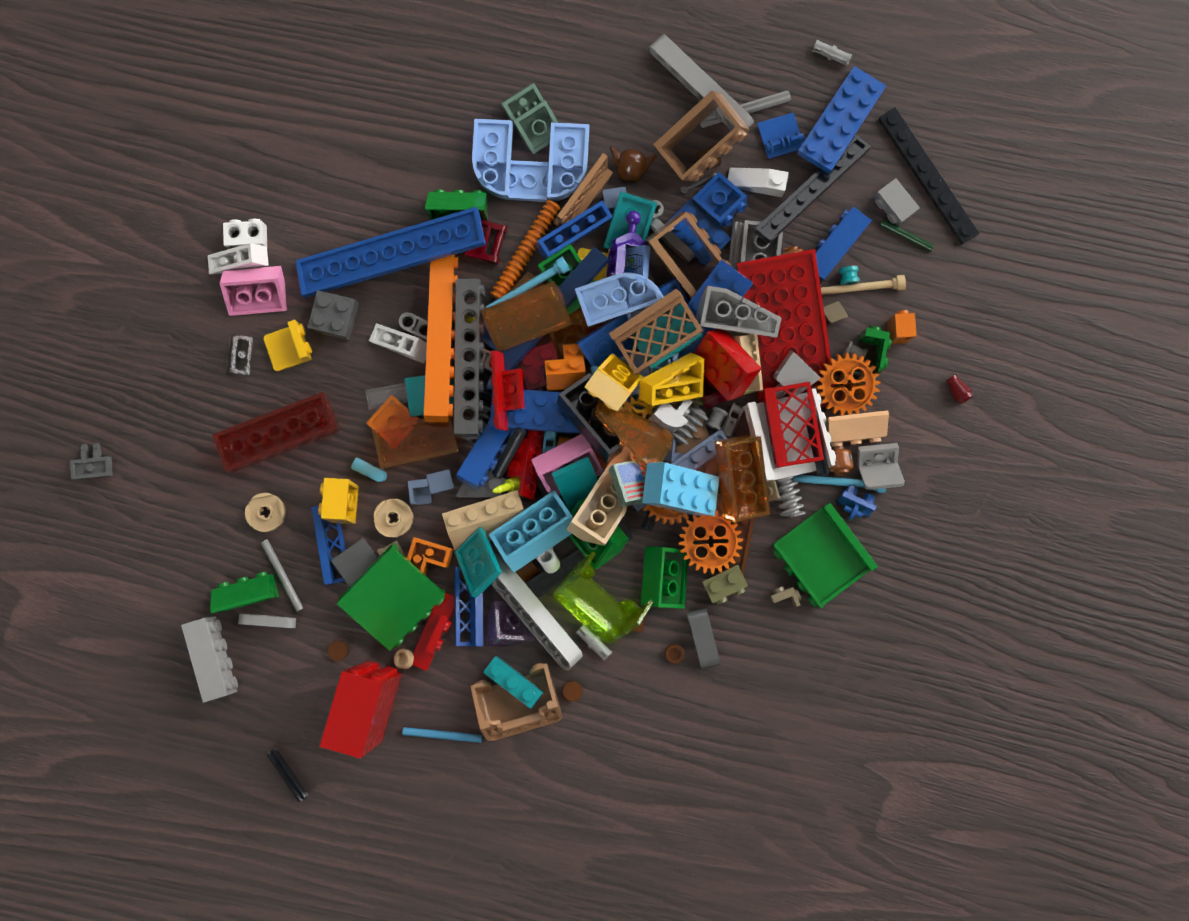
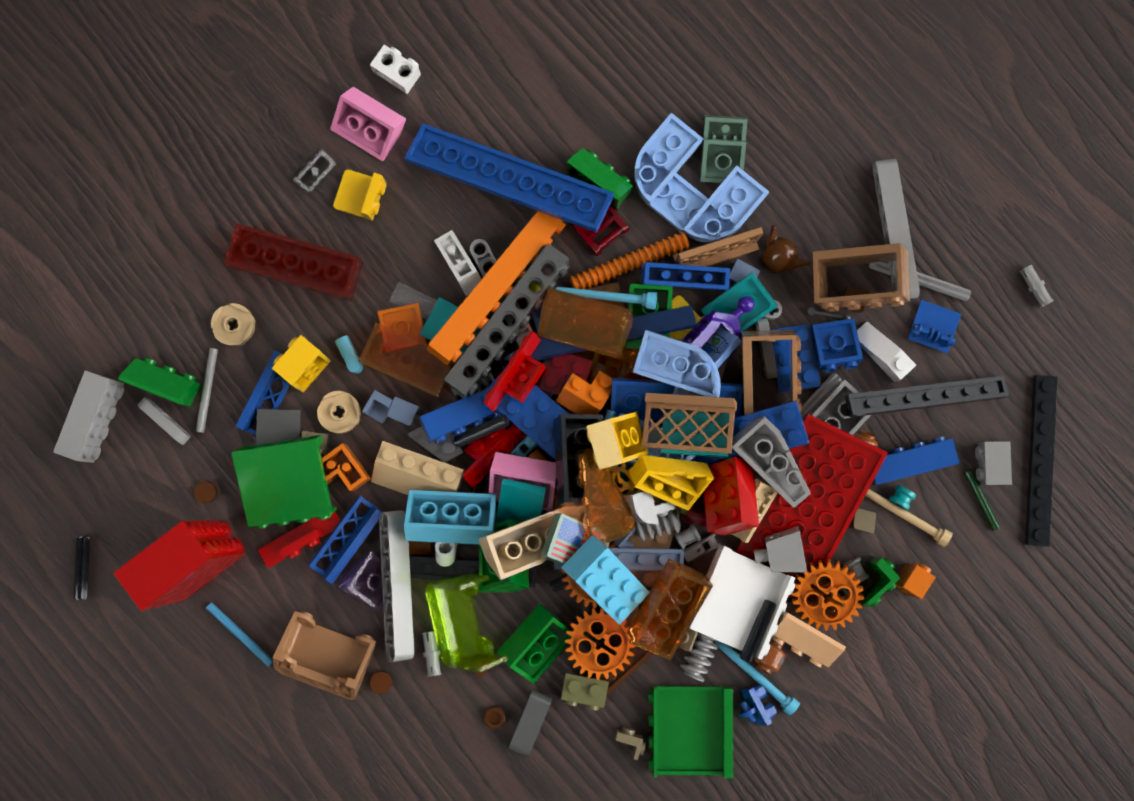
camera: 35 degrees right, 0 degrees up
(91, 467) = (115, 175): dark grey hinge -> none
(238, 258) = (374, 85): white slope -> none
(333, 315) = (419, 195): dark grey brick -> none
(403, 659) = (256, 543): tan tile -> none
(478, 562) = (381, 508): teal tile -> none
(509, 485) = (460, 460): neon yellow bar -> none
(513, 682) = (335, 636): teal brick -> none
(775, 428) = (731, 590): red fence -> none
(841, 120) = (999, 353): blue plate -> none
(880, 466) = (801, 690): light grey bracket -> none
(959, 389) = (925, 674): dark red cone -> none

